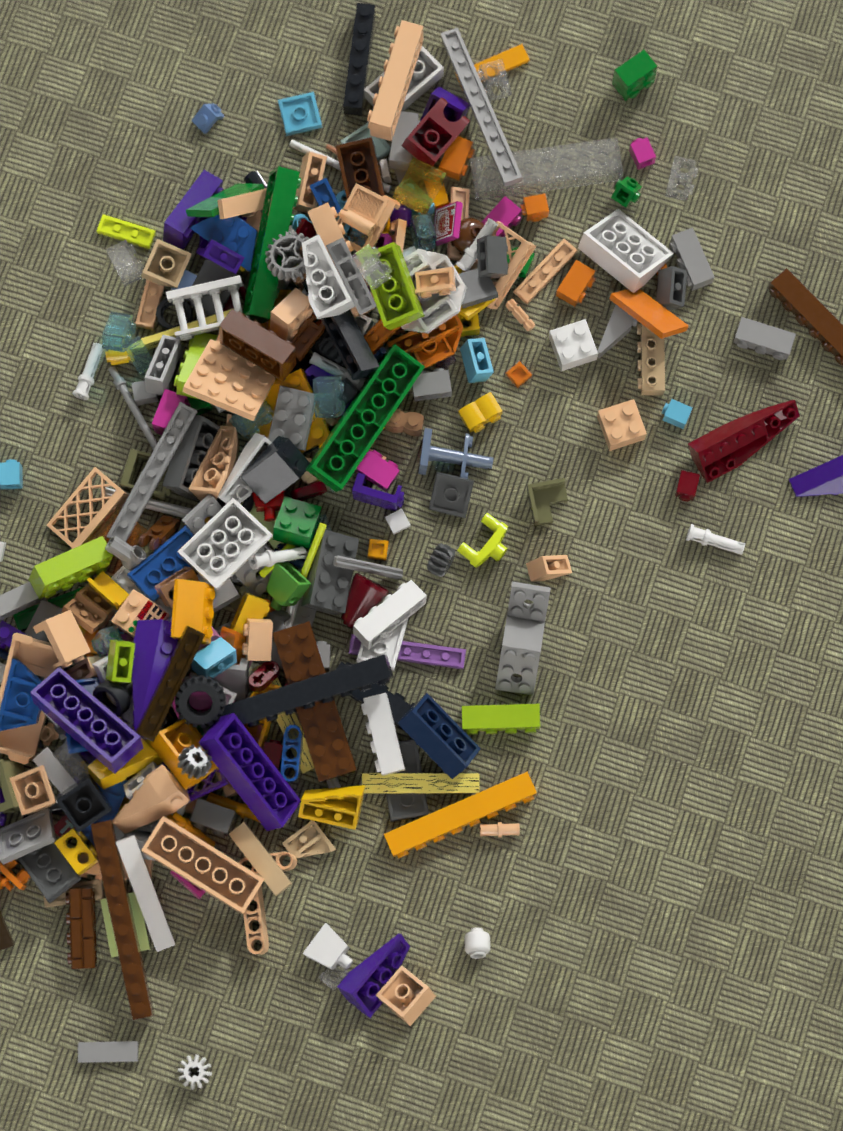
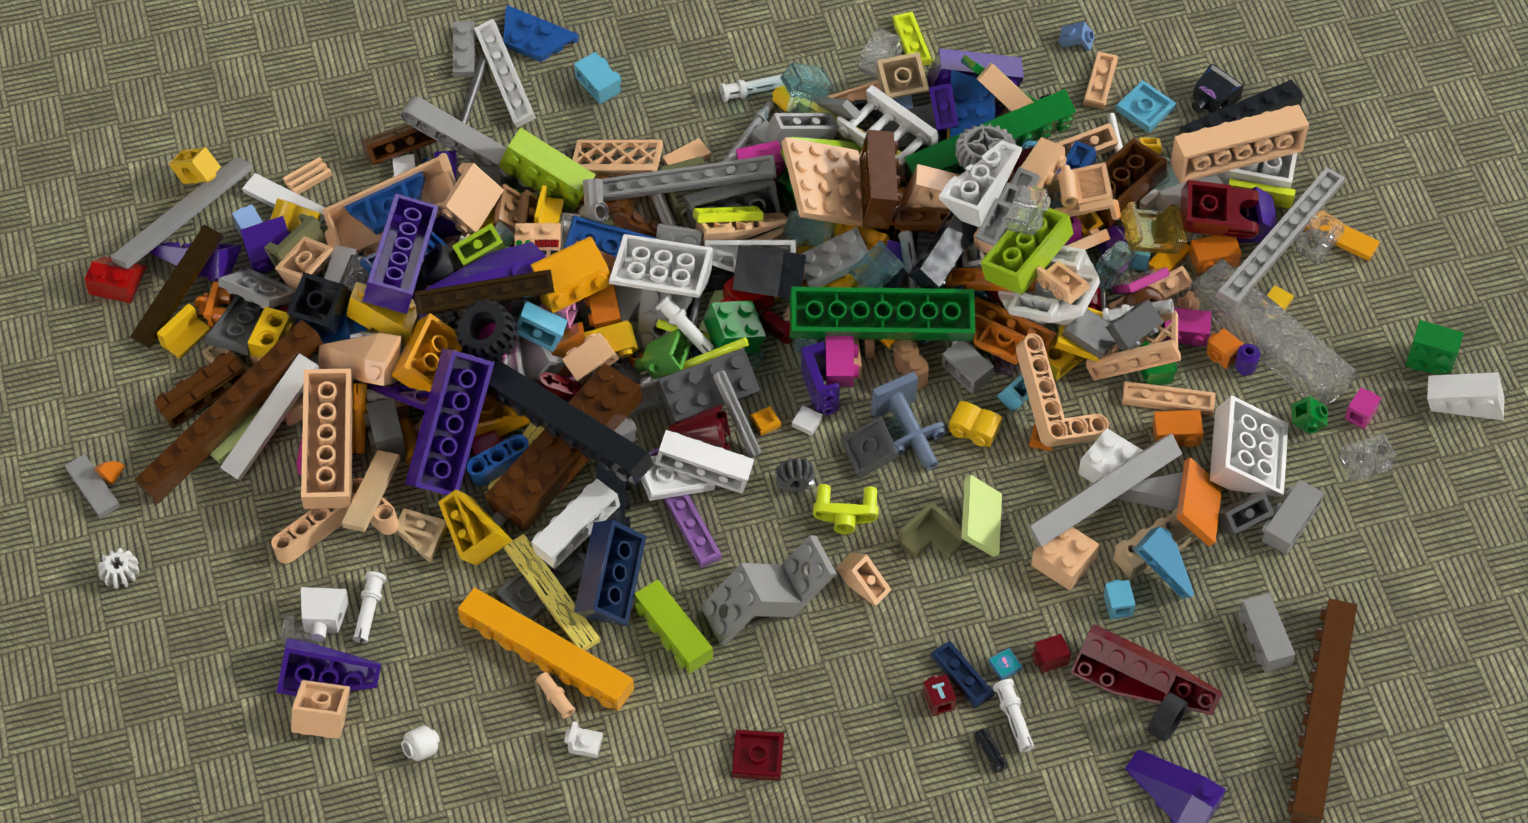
camera: 55 degrees right, 20 degrees down
(19, 911) = (182, 332): none -> yellow panel
(105, 1032) = (109, 471): none -> orange tile
(116, 457) = (691, 150): none -> light nougat tile
(163, 326) = (840, 107): none -> light grey tile
(194, 762) = (420, 355): dark grey gear -> none
(204, 466) = (727, 214): none -> neon yellow tile
(225, 604) = (604, 308): none -> orange brick
(255, 127) = (1100, 80): none -> light nougat tile
(323, 58) = (1215, 90): none -> black torso
(336, 135) = (1152, 143): none -> yellow tile
(337, 908) = (370, 597): none -> white pin
(423, 97) = (1281, 196): none -> neon yellow tile
(484, 200) = (1193, 302): none -> light nougat plate
(503, 351) = (1050, 400): none -> light nougat beam
(519, 142) = (1280, 297): none -> yellow tile
(520, 315) = (1105, 398): light nougat axle -> none
(546, 832) = (583, 741): none -> white bracket
(556, 199) = (1247, 359): none -> dark purple brick
(557, 458) = (981, 515): none -> yellowish green tile
(599, 367) = (1104, 490): none -> light grey tile
(631, 724) = (758, 755): none -> dark red tile
(661, 552) = (962, 674): none -> dark blue tile
(668, 578) = (939, 695): none -> dark red brick
(672, 519) = (1005, 664): none -> tile
(674, 364) = (1164, 558): none -> dark azure slope
(680, 81) = (1467, 395): none -> white wedge
(728, 572) = (991, 750): none -> black axle
(785, 446) = (1167, 717): none -> black tyre

